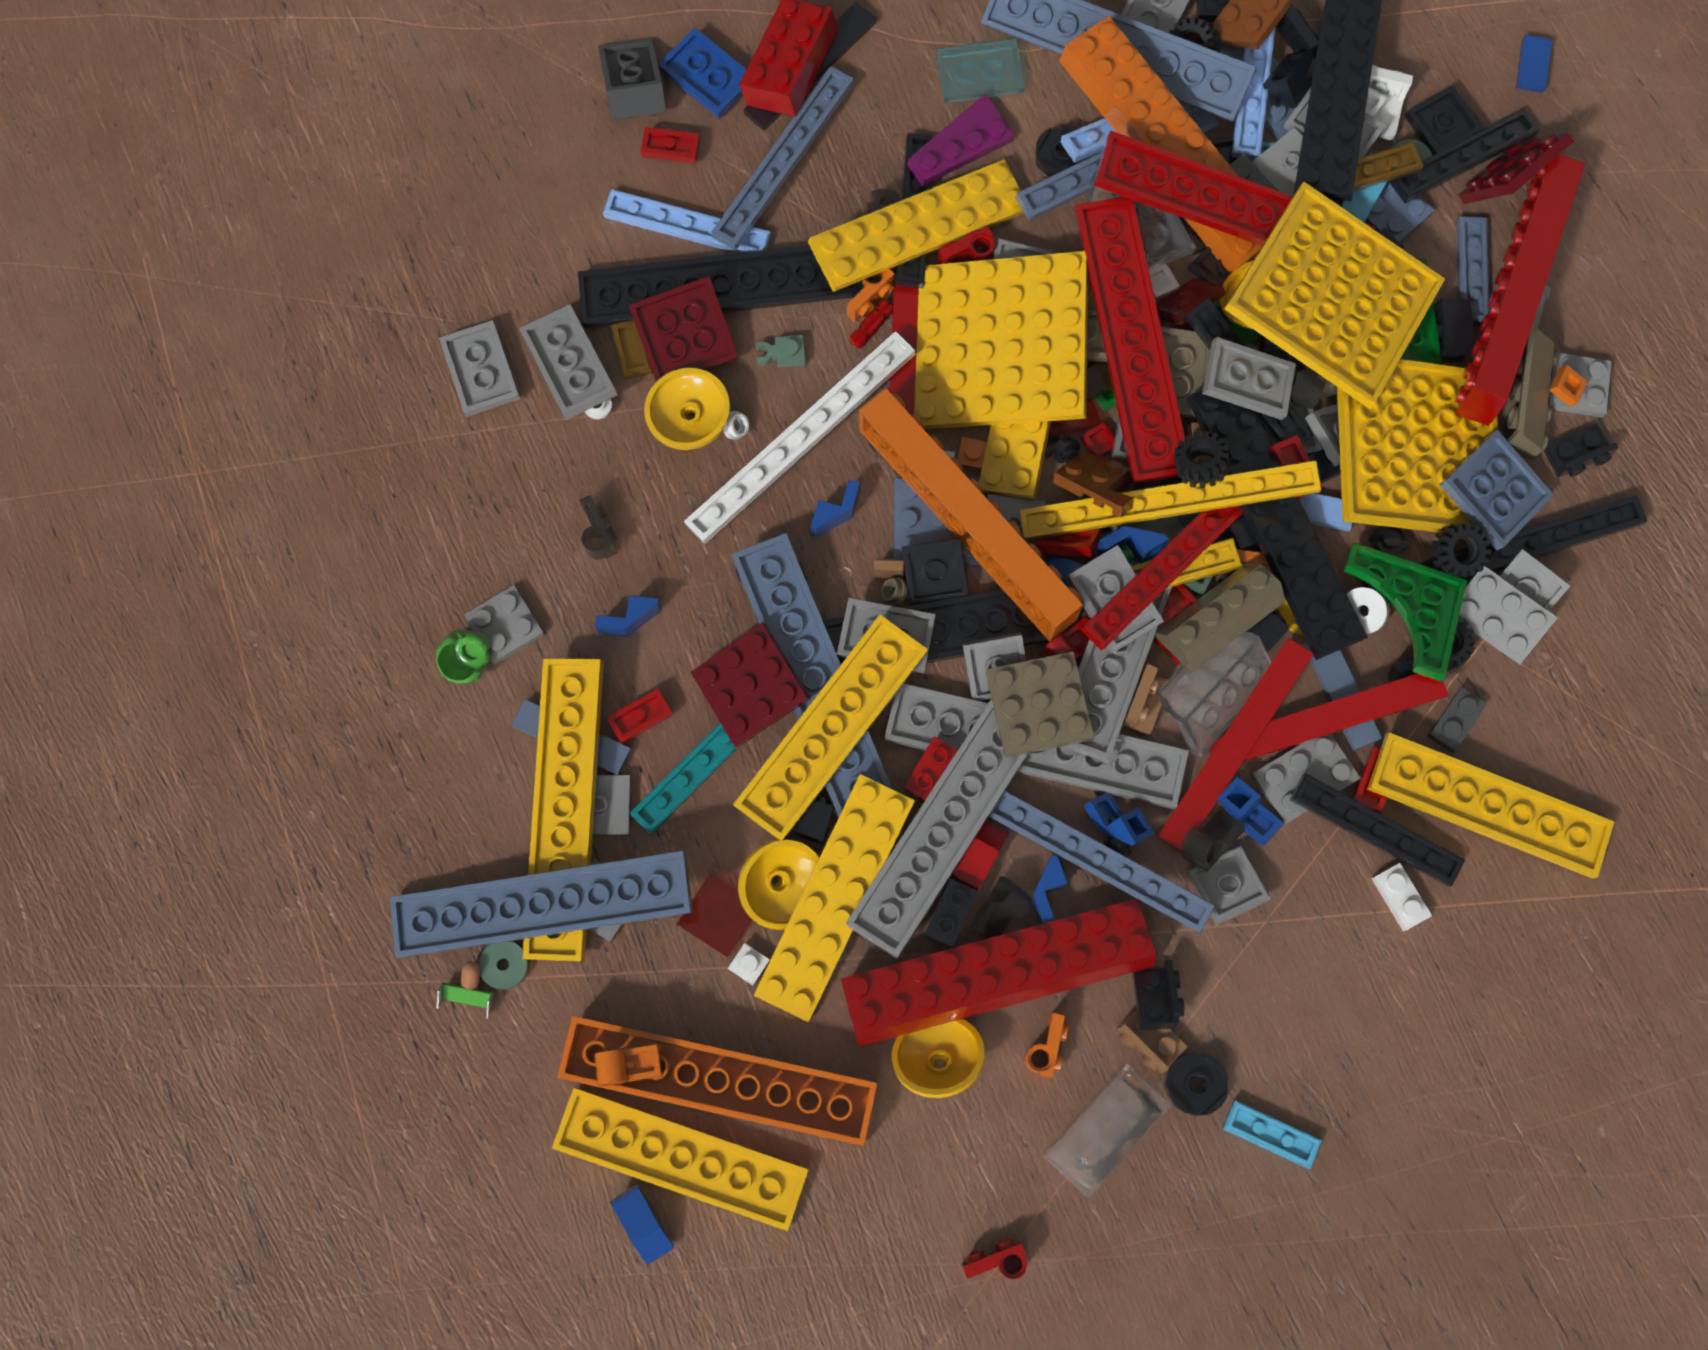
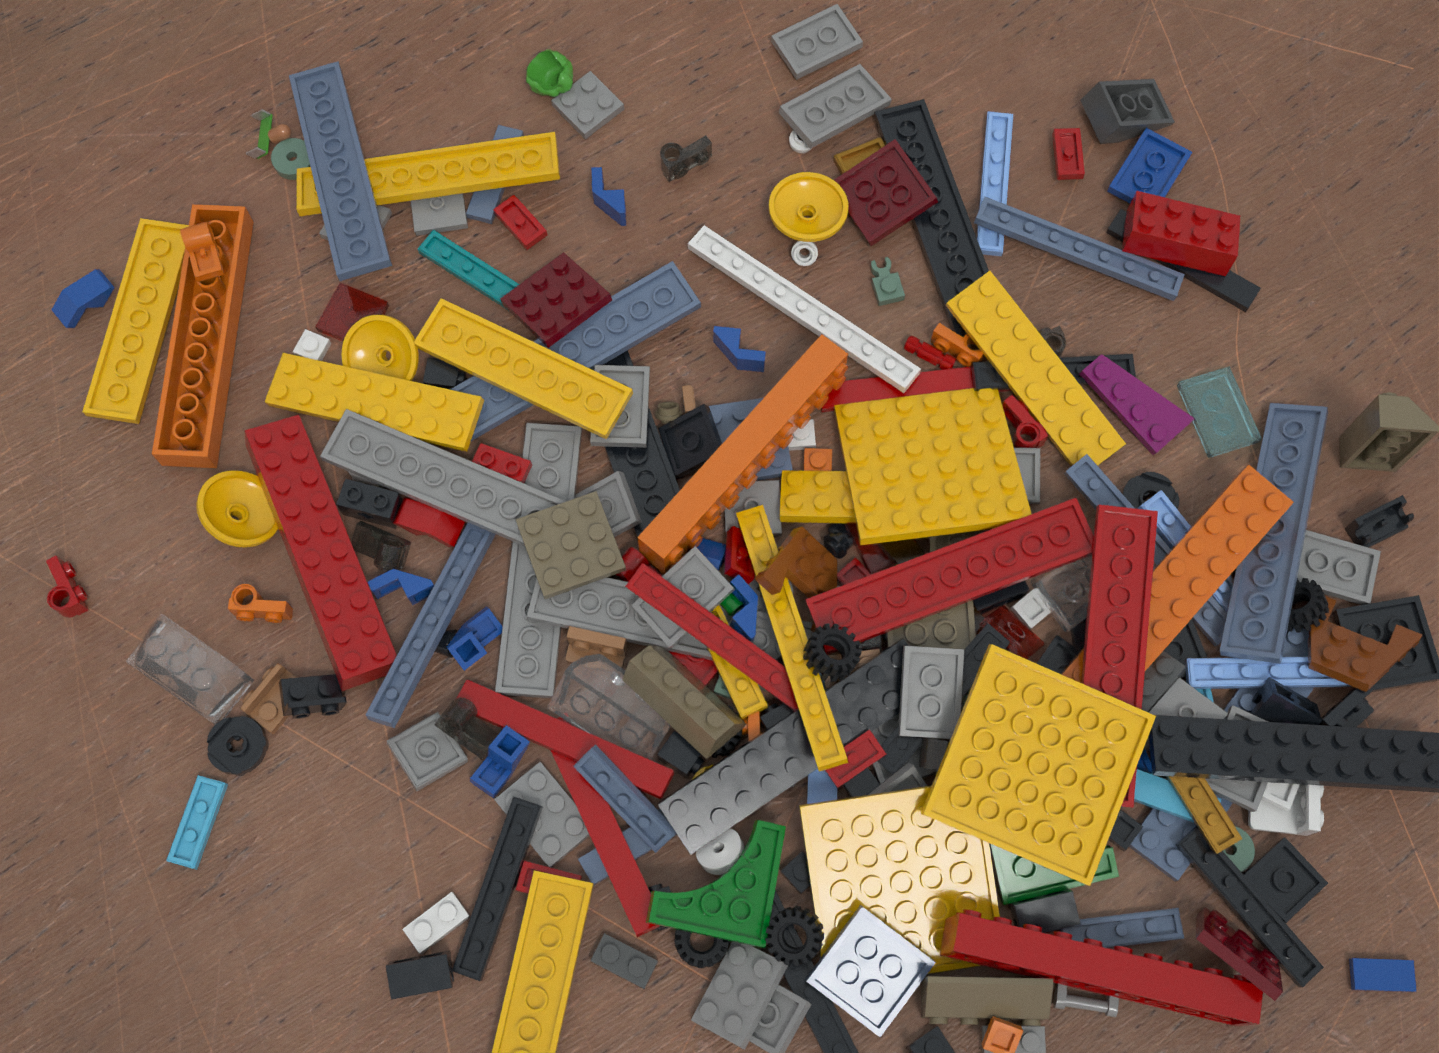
camera: 80 degrees right, 5 degrees down
(1308, 689) = (625, 798): none -> sand blue tile
(1453, 916) = (420, 974): none -> black hinge

